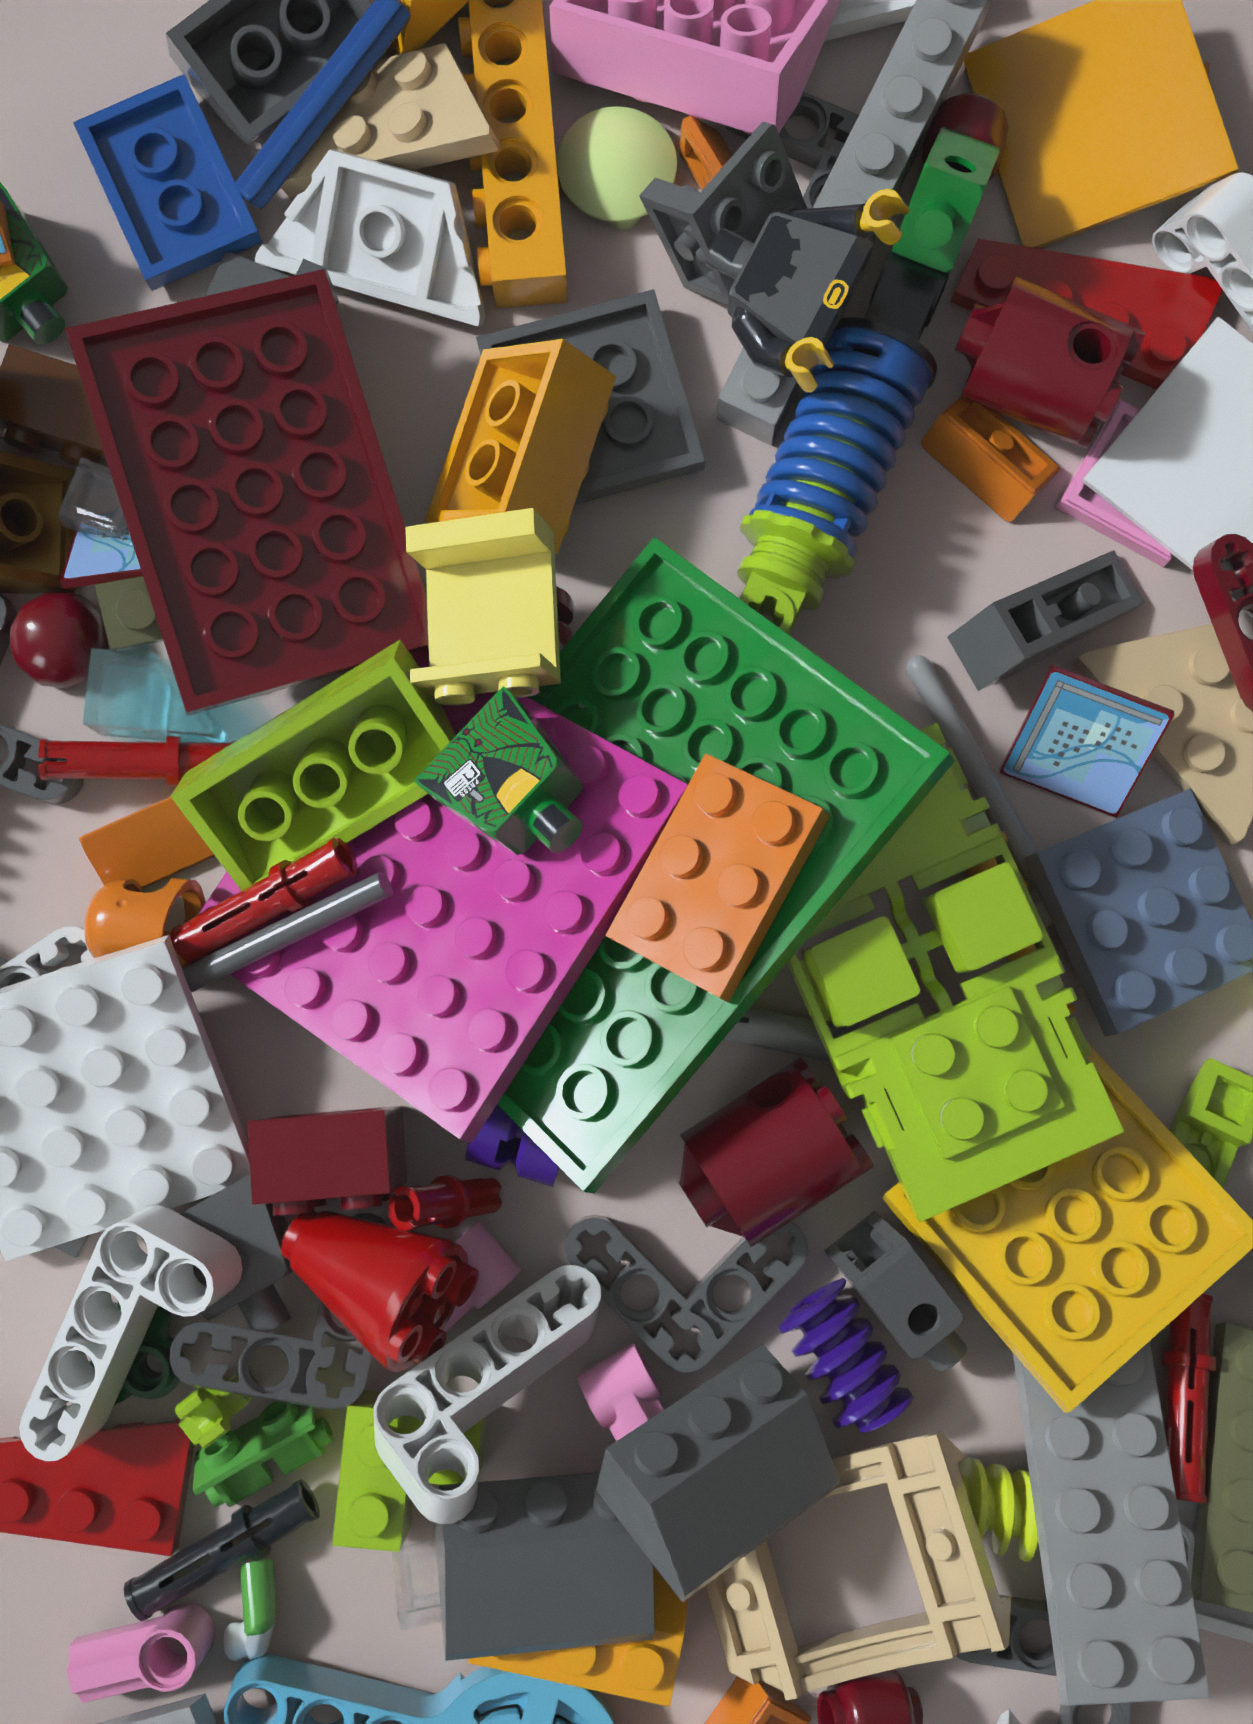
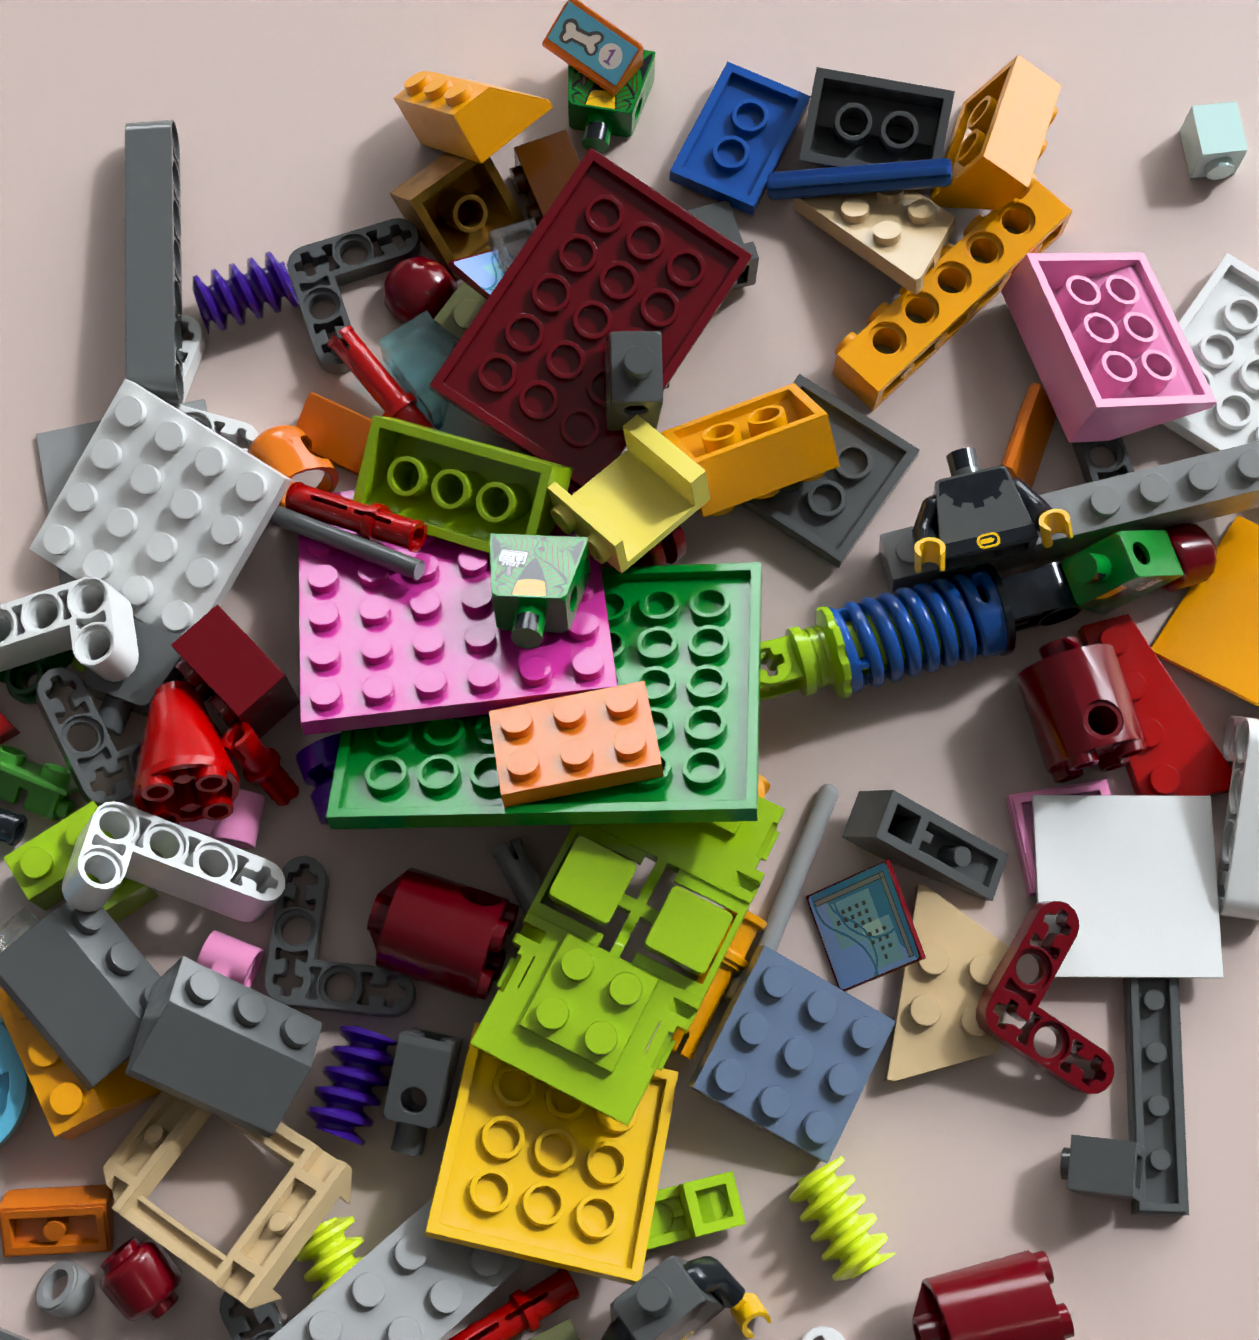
camera: 50 degrees right, 10 degrees down
(208, 1413) = (30, 727): lime plate -> none
(361, 497) = (633, 377): none -> dark grey torso
(382, 236) = (811, 276): white wing -> none
(611, 160) = (979, 371): yellowish green dish -> none
(737, 198) = (1023, 446): dark grey bracket -> none
(989, 457) = (999, 732): orange slope -> none

